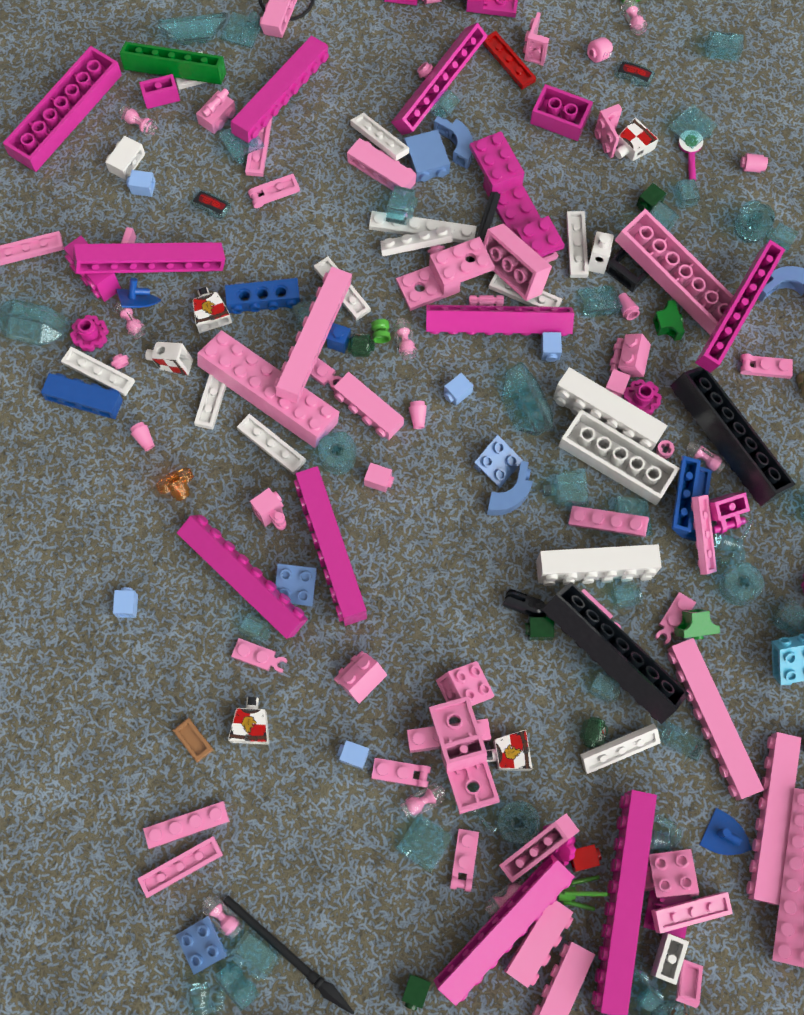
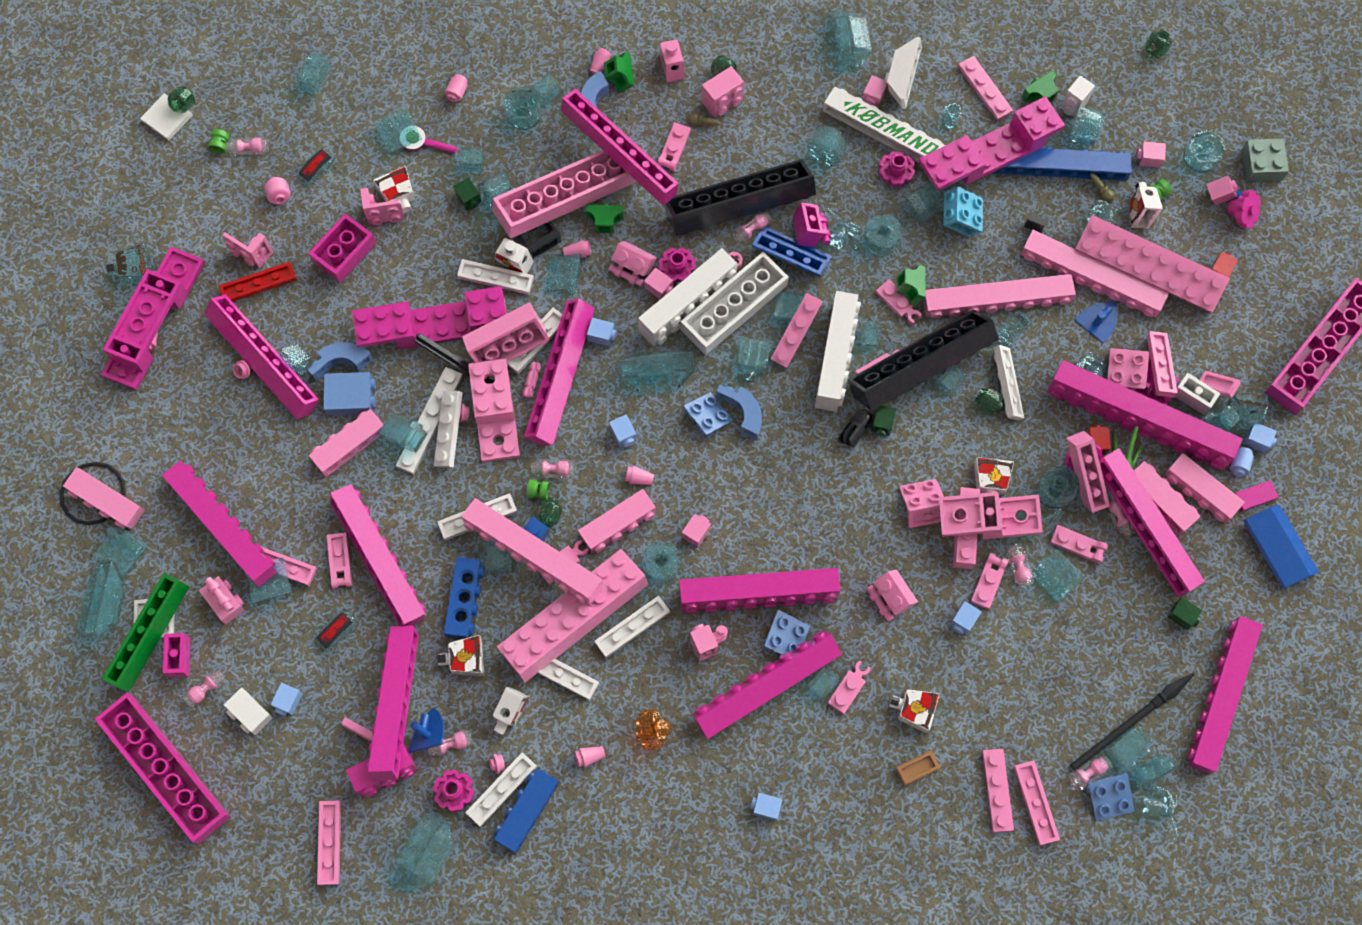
camera: 75 degrees left, 0 degrees up
(282, 216) = (376, 556): none -> brick
(379, 136) = (311, 435): white plate -> none
(704, 534) = (825, 249): bright pink plate -> none

